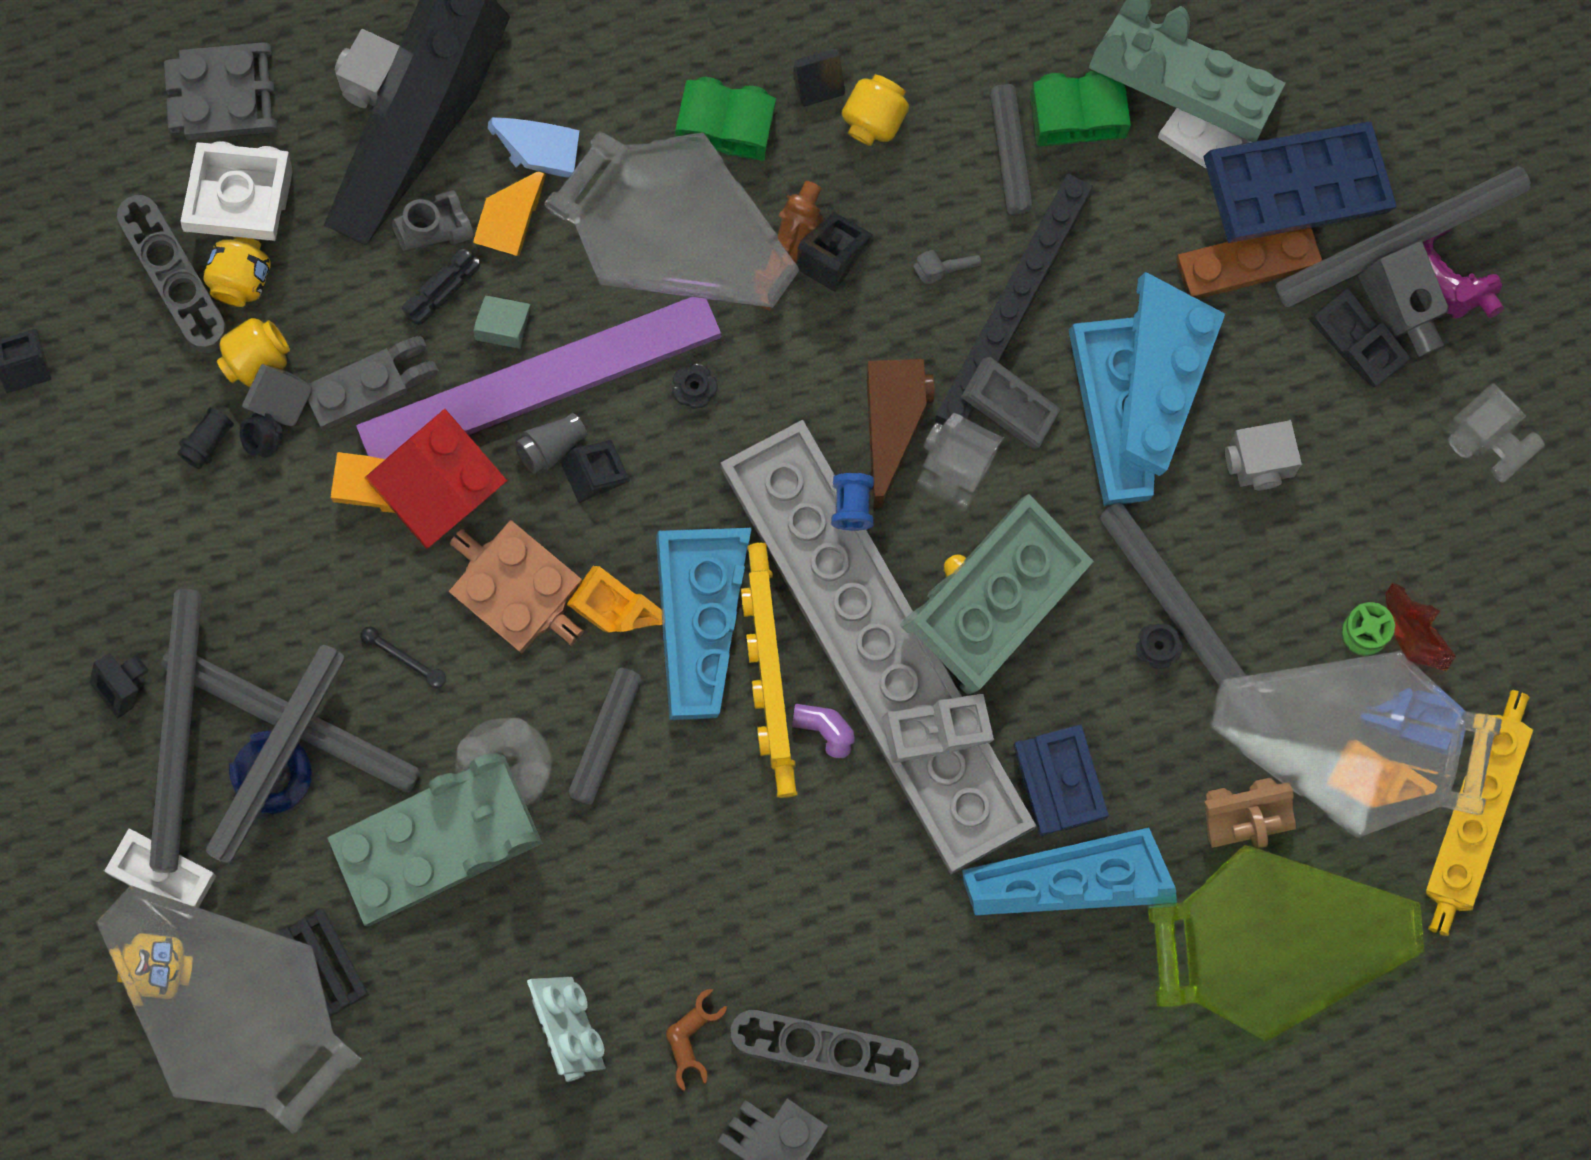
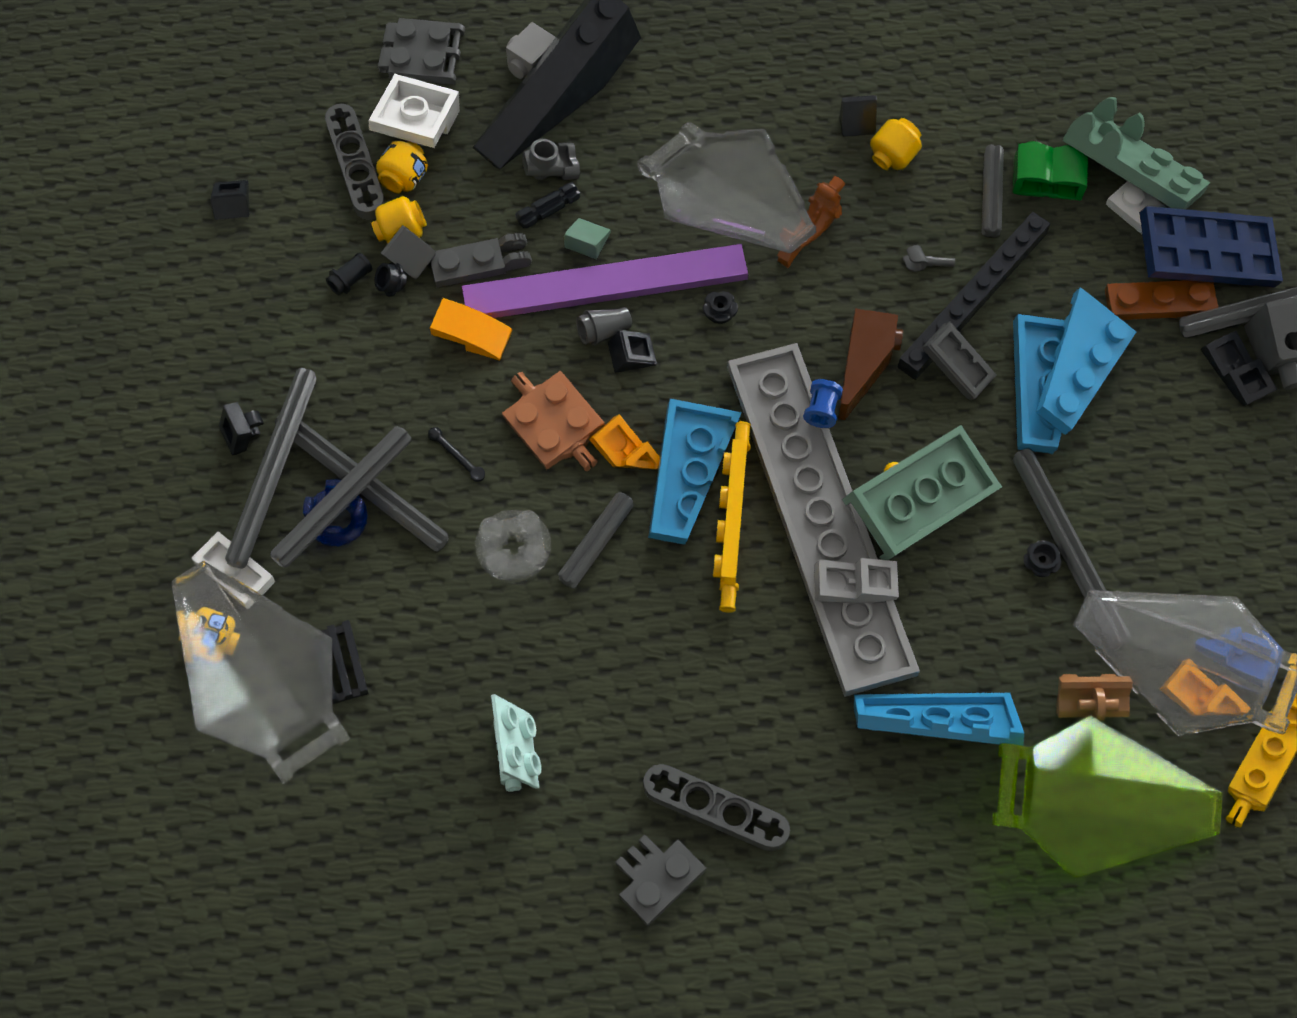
camera: 15 degrees right, 10 degrees down
(435, 478) = (511, 328): red slope -> none
(435, 839) = (448, 585): sand green hinge -> none
(508, 214) = (608, 166): light orange slope -> none
(538, 144) = (641, 124): light blue slope -> none
(679, 1034) = (604, 771): dark orange arm -> none
(732, 119) = (790, 130): green brick -> none
(829, 724) = (770, 564): medium lavender arm -> none
(831, 250) = (841, 233): black slope -> none
(961, 456) = (914, 390): clear brick -> none
(1060, 780) = (946, 643): dark blue plate -> none
(1263, 455) = (1150, 435): light grey brick -> none
(1376, 622) = (1217, 571): bright green wheel -> none
(1414, 630) = (1249, 584): clear red slope -> none

